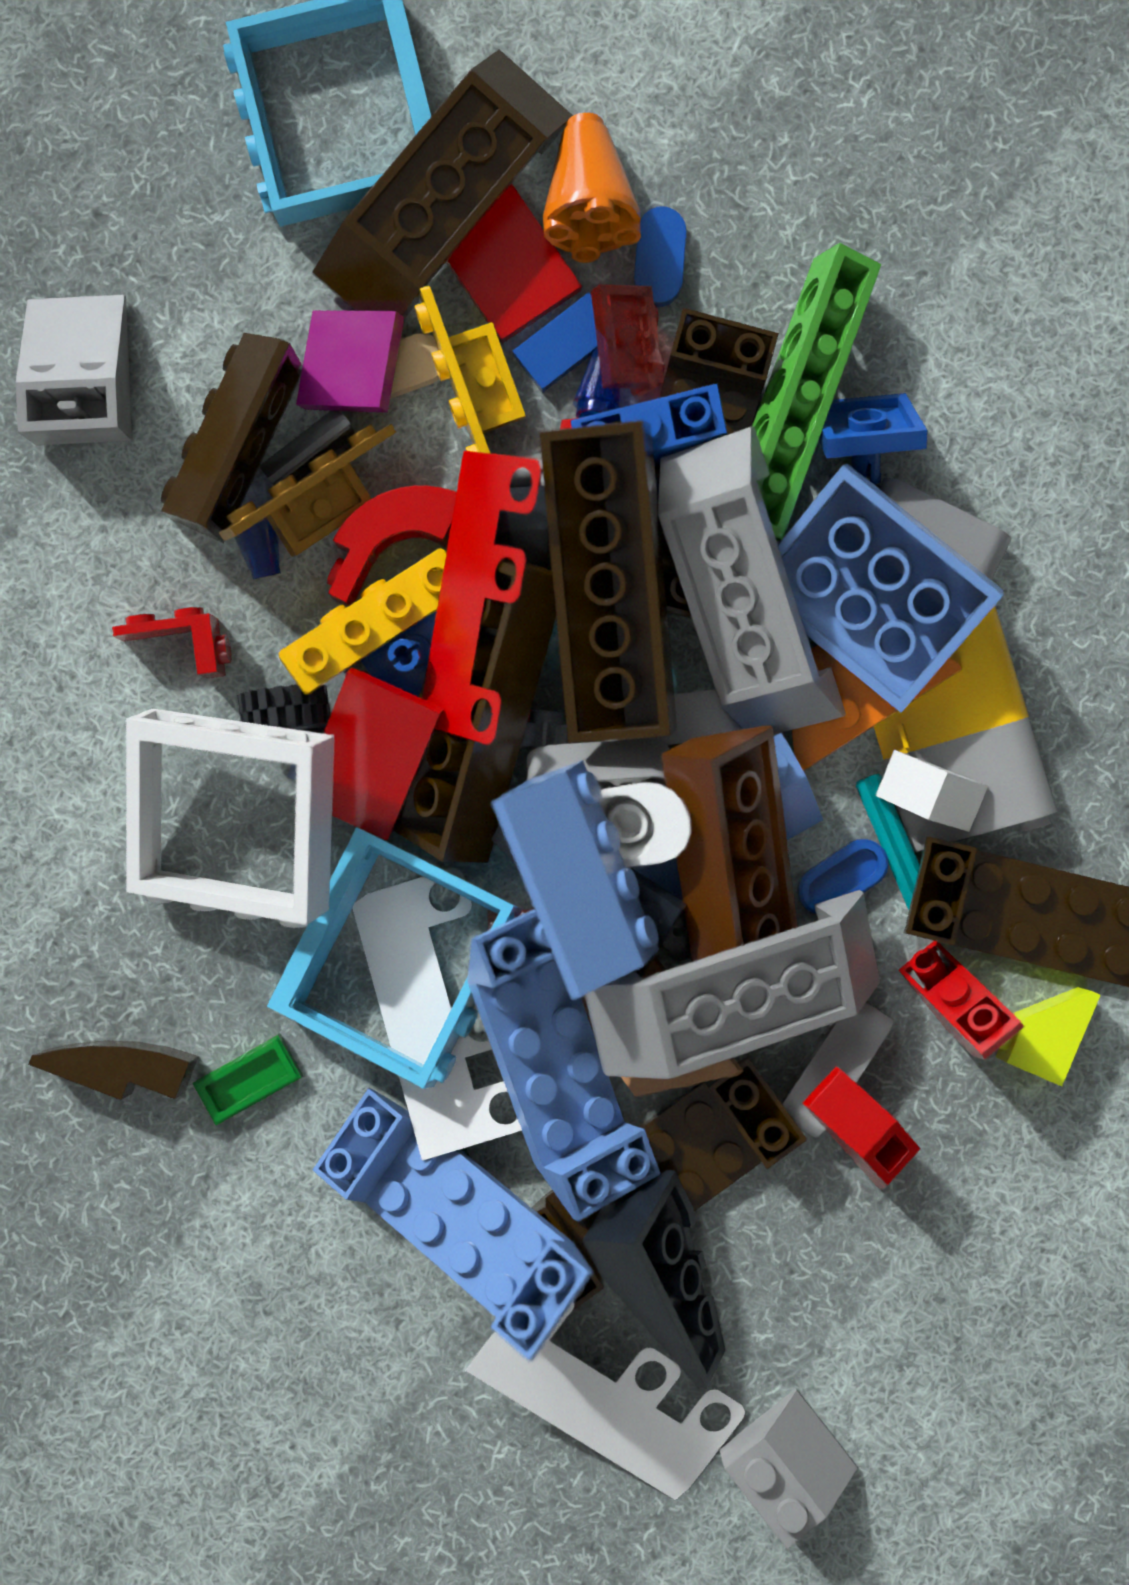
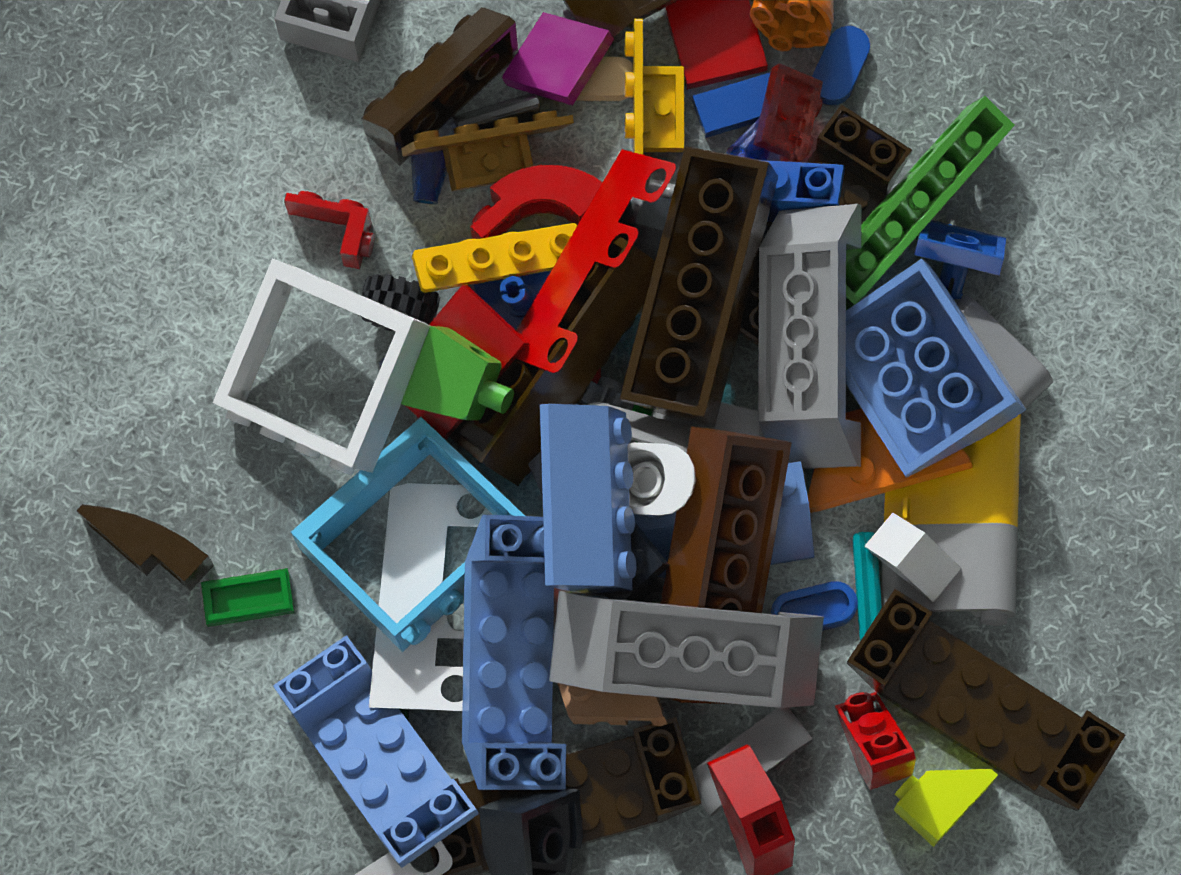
camera: 25 degrees right, 15 degrees down
(380, 779) = (456, 378): none -> bright green torso

